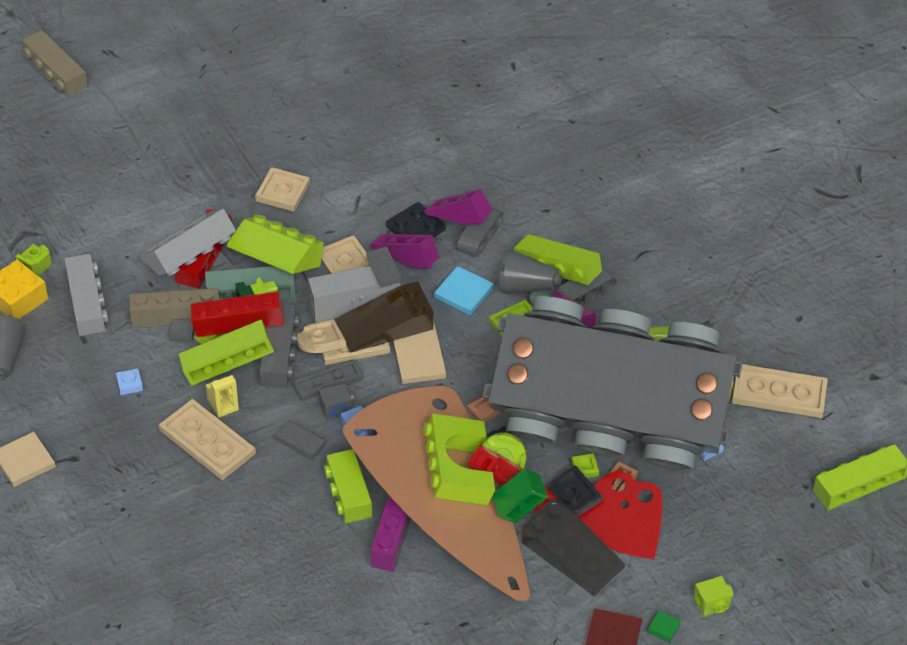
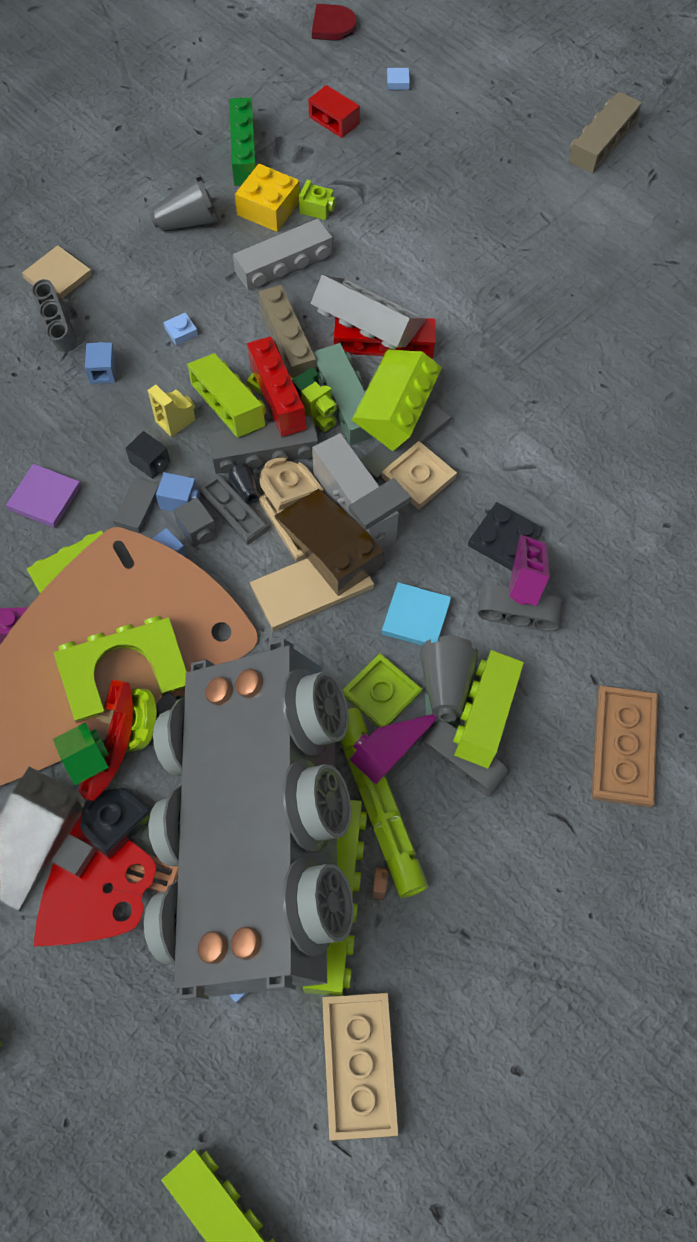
camera: 75 degrees right, 15 degrees up
(71, 454) = (54, 315): none -> dark grey beam
(146, 438) = (100, 362): none -> medium blue brick
(207, 439) = (111, 418): tan plate -> none
(258, 420) = (148, 455): none -> black brick
(266, 501) = (43, 495): none -> medium lavender tile
(282, 189) = (506, 385): tan plate -> none
(303, 408) = (176, 491): none -> medium blue brick
(311, 363) = (244, 482): none -> black cone
(409, 249) = (455, 535): magenta slope -> none
(595, 520) = (74, 855): none -> dark grey tile
(600, 207) = (625, 746): none -> medium nougat tile

